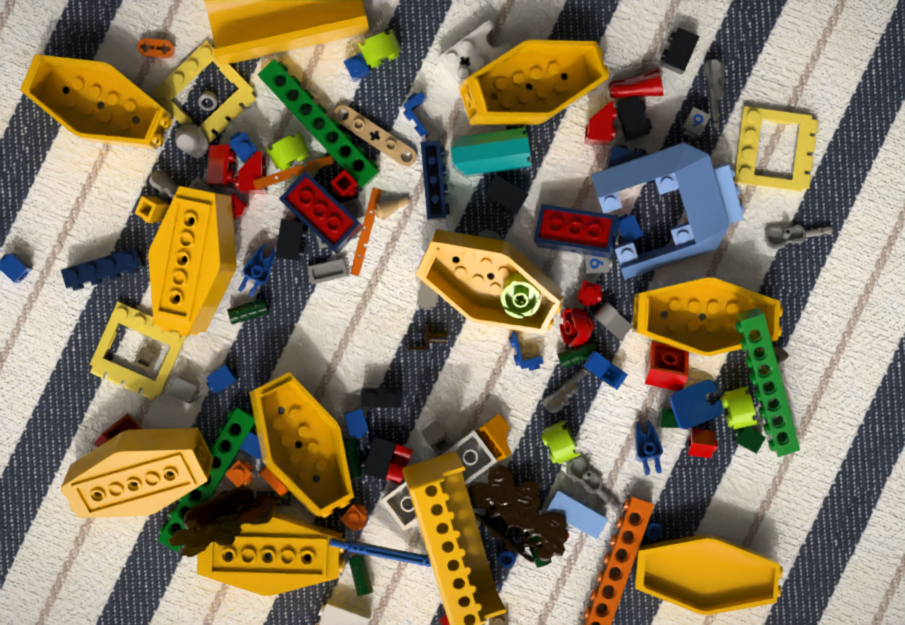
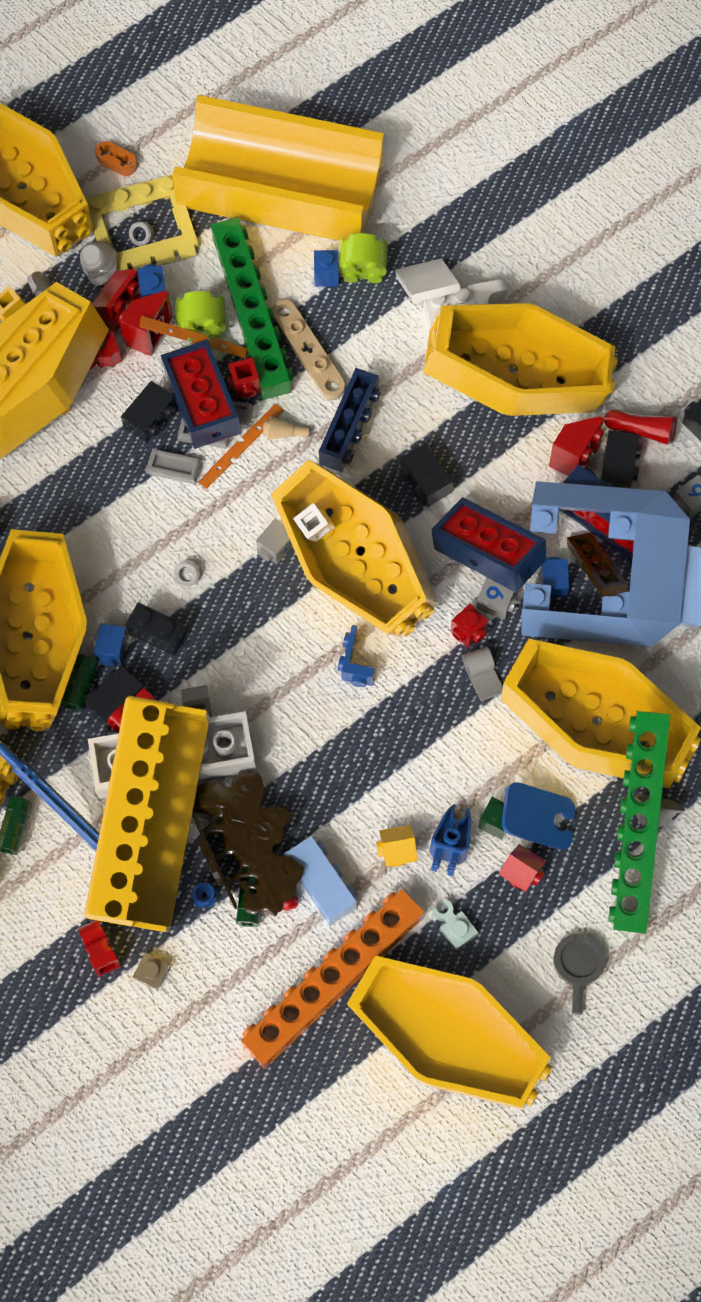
camera: 30 degrees right, 20 degrees down
(248, 311) = (56, 464): dark green axle -> none
(255, 272) = (93, 423): blue hinge -> none
(355, 517) = (46, 751): orange brick -> none
(376, 339) = (193, 566): none -> light grey piece
(415, 101) = (368, 333): blue bracket -> none
(429, 337) = (250, 590): dark brown bracket -> none
(435, 45) = (427, 280): none -> white tile
(454, 277) = (314, 523): none -> white brick
(491, 152) = (430, 417): teal brick -> none
(495, 436) = (267, 732): light orange arch -> none
(516, 305) = (370, 580): lime brick -> none
(559, 398) = (388, 725): flat silver piece -> none
(560, 442) = (345, 781): lime brick -> none
(576, 326) = (435, 657): red cylinder -> none
(576, 354) = (419, 691): dark green axle -> none
(580, 471) = (352, 832): light grey piece -> none
(605, 370) = (442, 720): blue bracket -> none
(614, 467) = (397, 846): none -> yellow brick
(656, 211) = (596, 564): none -> dark brown plate
(658, 530) = (402, 946): blue plate -> none
(667, 367) = (522, 756): red slope -> none
(676, 499) = (456, 928): none -> light aqua plate
(739, 408) = (589, 845): lime brick -> none
(748, 439) = (586, 893): dark green brick -> none
(763, 484) = (579, 963): none -> dark grey piece

